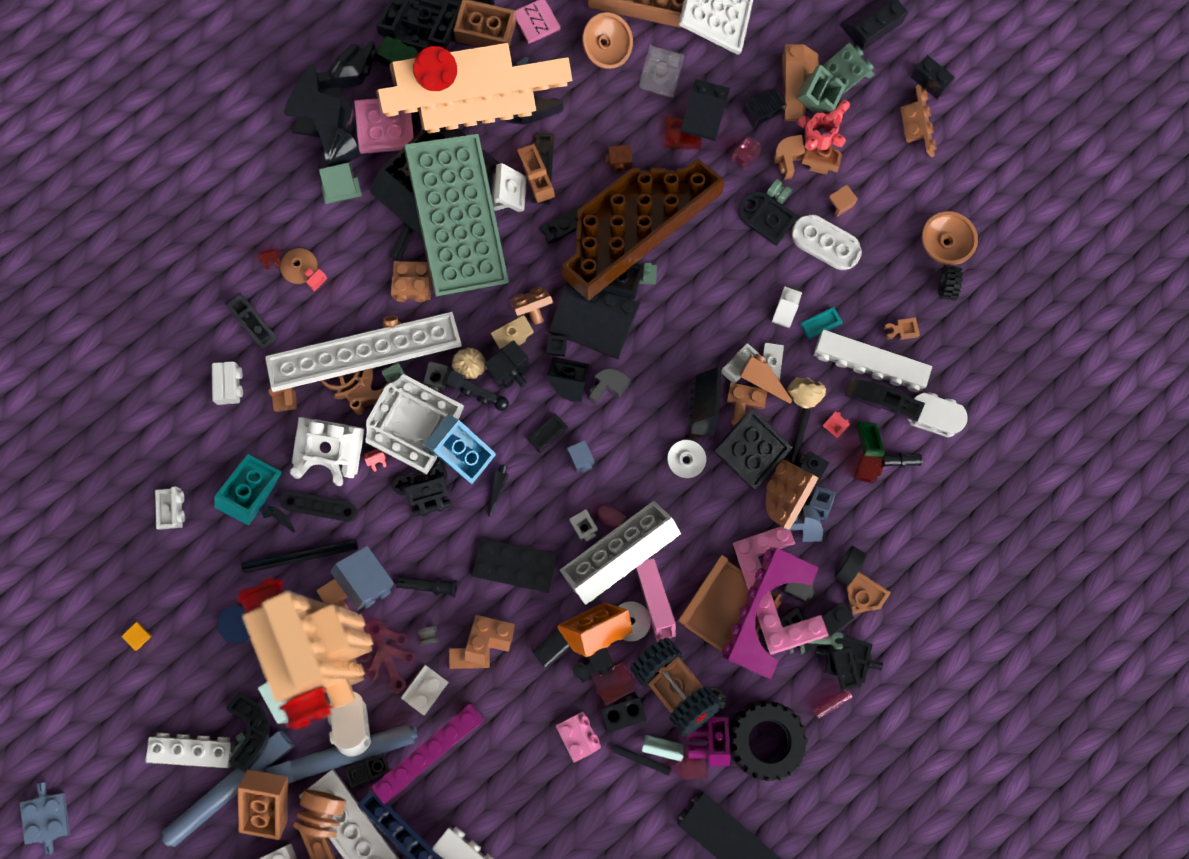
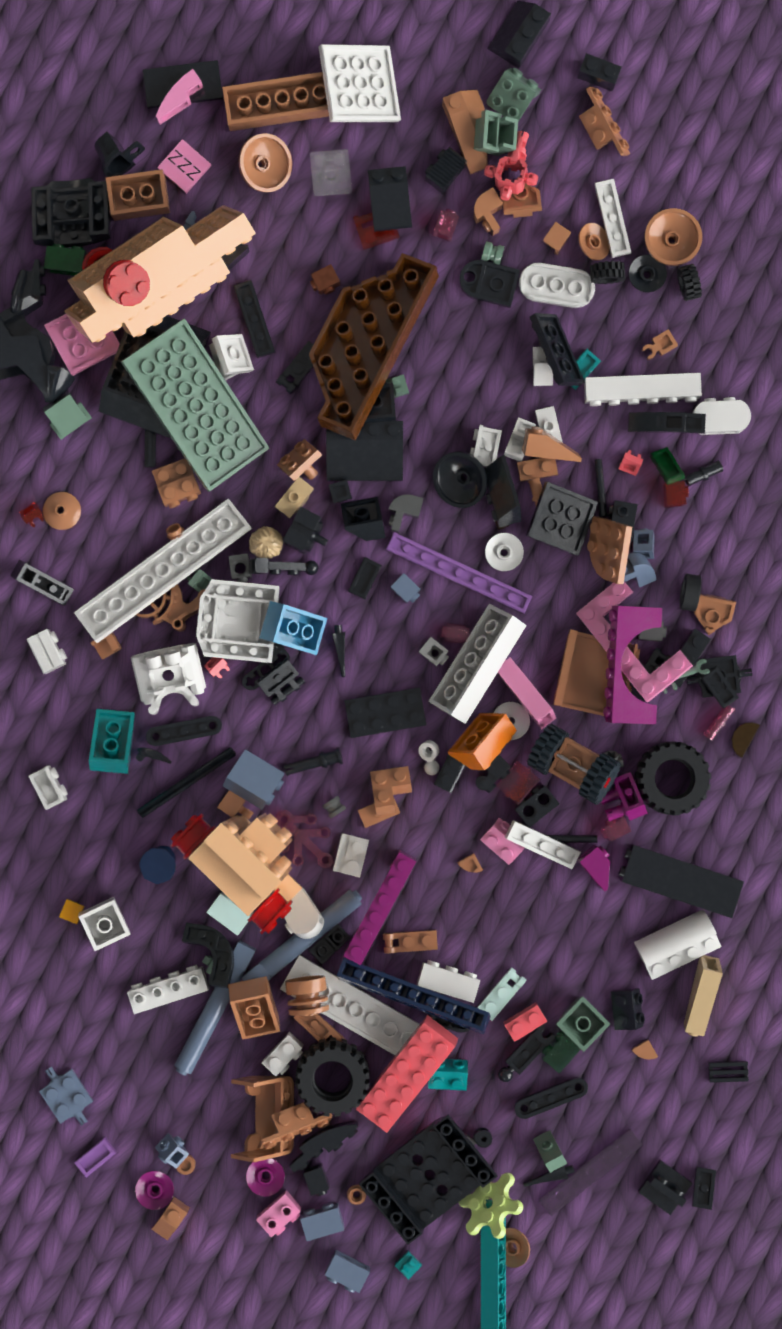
camera: 15 degrees left, 10 degrees up
(159, 660) = (104, 923): none -> white brick
(315, 279) = (84, 518): coral tile -> none
(447, 800) = (411, 941): none -> nougat plate
(536, 173) = (251, 328): nougat slope -> none
(536, 746) = (470, 864): none -> nougat tile
(538, 635) = (431, 766): none -> white plate
(614, 755) = (542, 844): none -> white plate
(637, 462) = (459, 573): none -> medium lavender tile
(660, 798) = (596, 865): none -> magenta slope
(662, 372) = (452, 485): none -> black dish
(663, 747) = (583, 821): light aqua tile -> none
(707, 356) = (486, 445): none -> white bracket
(806, 294) = (556, 349): none -> black plate
(806, 392) = (591, 444): tan hair -> none
(850, 728) = (742, 737): none -> dark brown tile
(875, 216) = (594, 241): none -> nougat dish
(877, 246) = (607, 272): none -> black tyre
(899, 203) = (612, 218): none -> white plate
(917, 255) = (648, 264): none -> black dish

